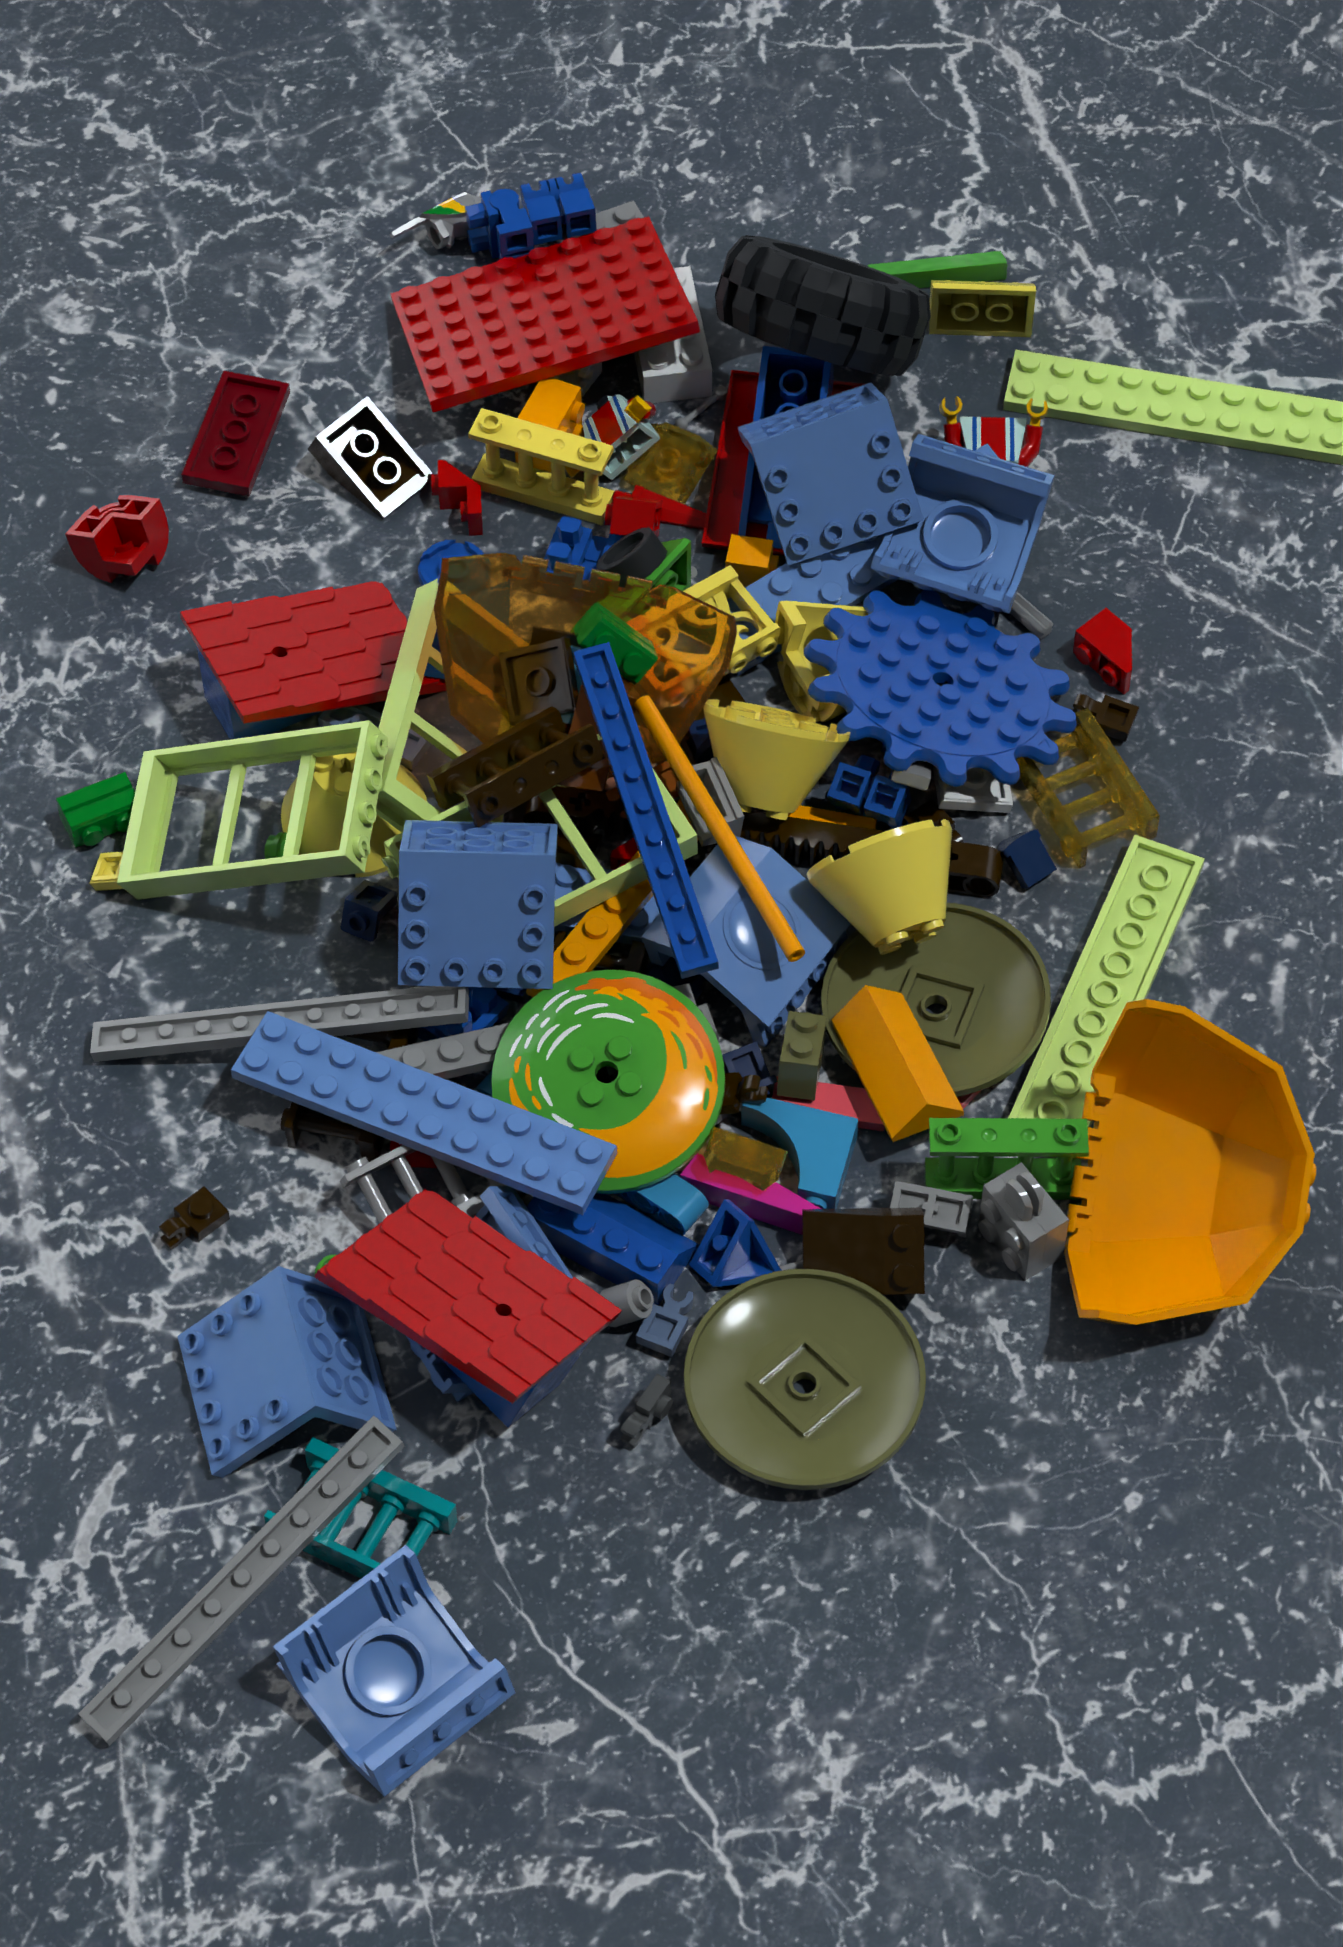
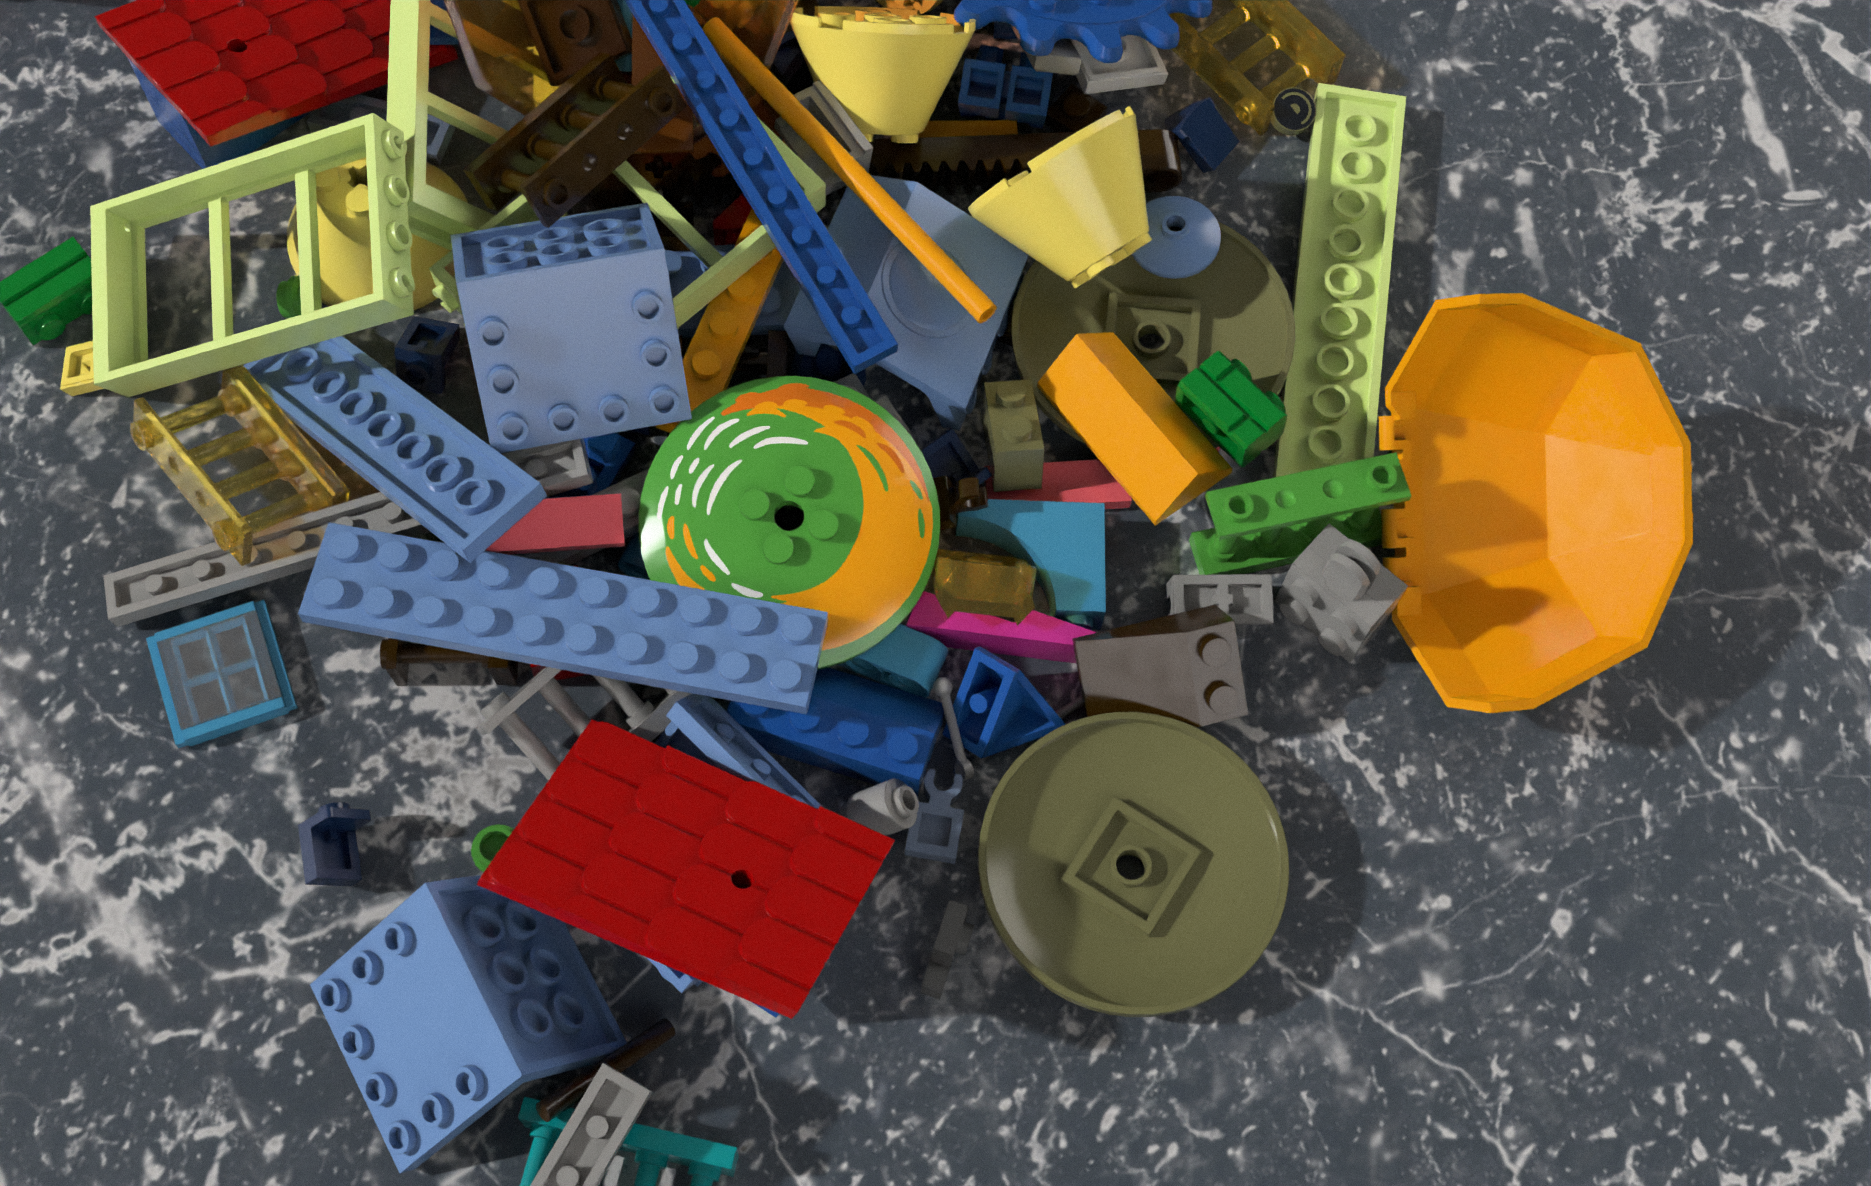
camera: 20 degrees left, 10 degrees up
(162, 1110) = (221, 673): none -> clear piece
(197, 1216) = (290, 807): dark brown plate -> none
(215, 1242) = (331, 845): none -> dark blue bracket
(233, 938) = (264, 428): none -> clear yellow fence
(328, 962) = (400, 443): none -> medium blue plate
(399, 1428) = (619, 1059): none -> dark brown bar
(427, 1044) = (566, 526): none -> coral tile
(695, 1227) = (943, 688): none -> light grey hinge
(974, 942) = (1179, 252): none -> medium blue dish
(974, 1065) = (1231, 407): none -> green brick
(1105, 852) = (1293, 111): none -> black tile

